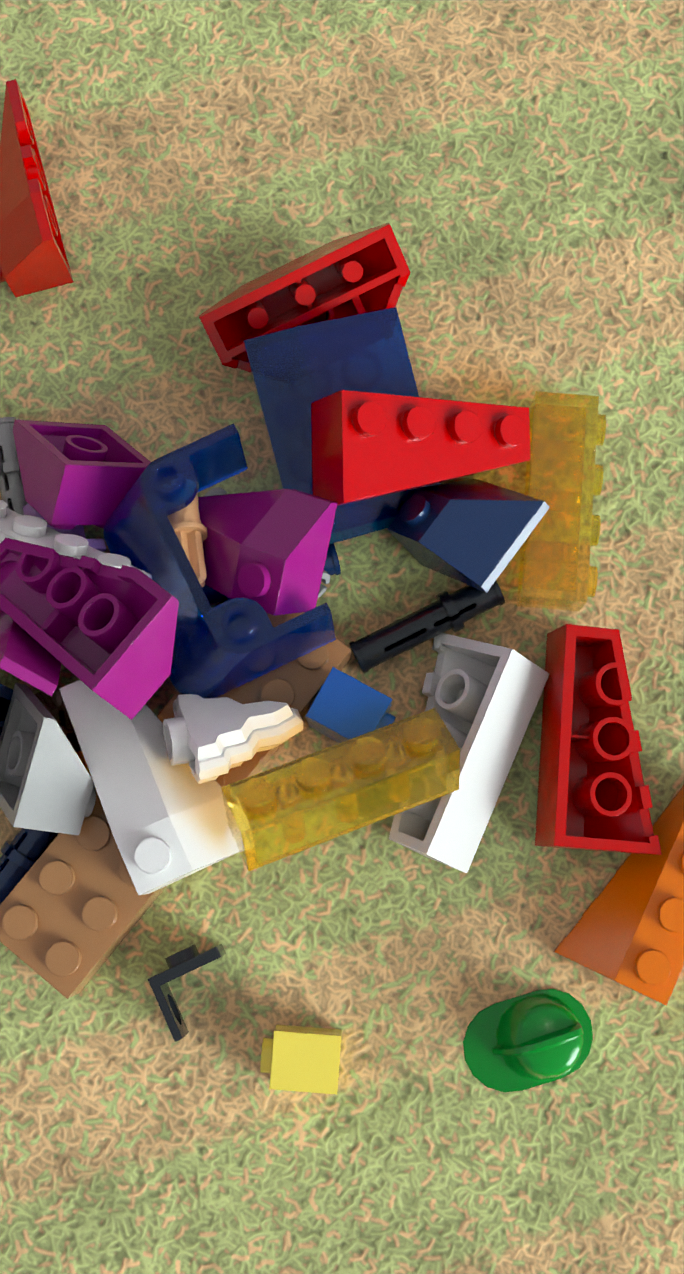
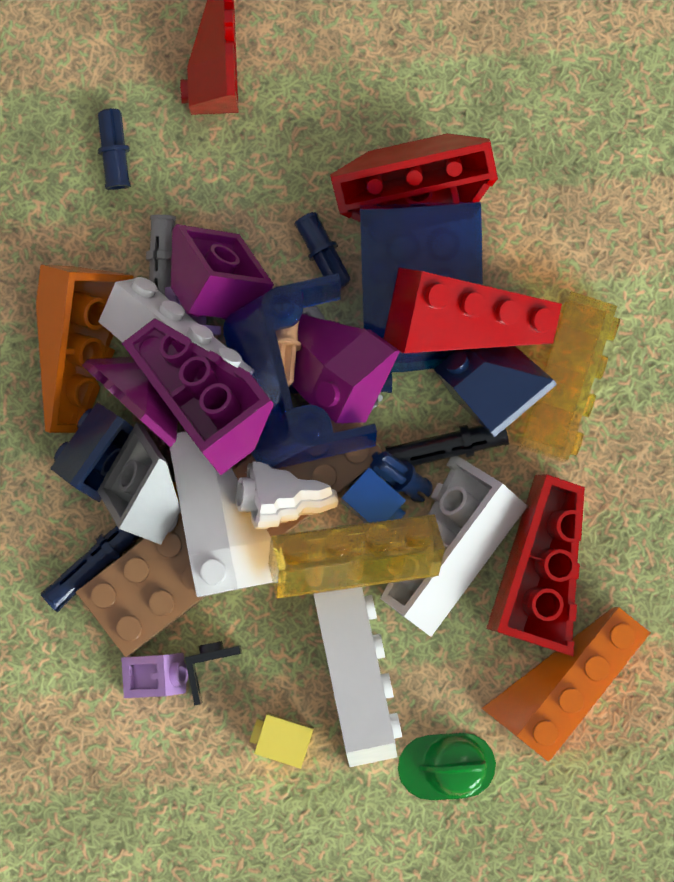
camera: 10 degrees right, 5 degrees up
(115, 1012) = (154, 675): none -> lavender bracket
(207, 411) = (321, 247): none -> dark blue axle
(377, 671) = (401, 476): none -> dark blue axle
(380, 949) = (356, 676): none -> white wedge

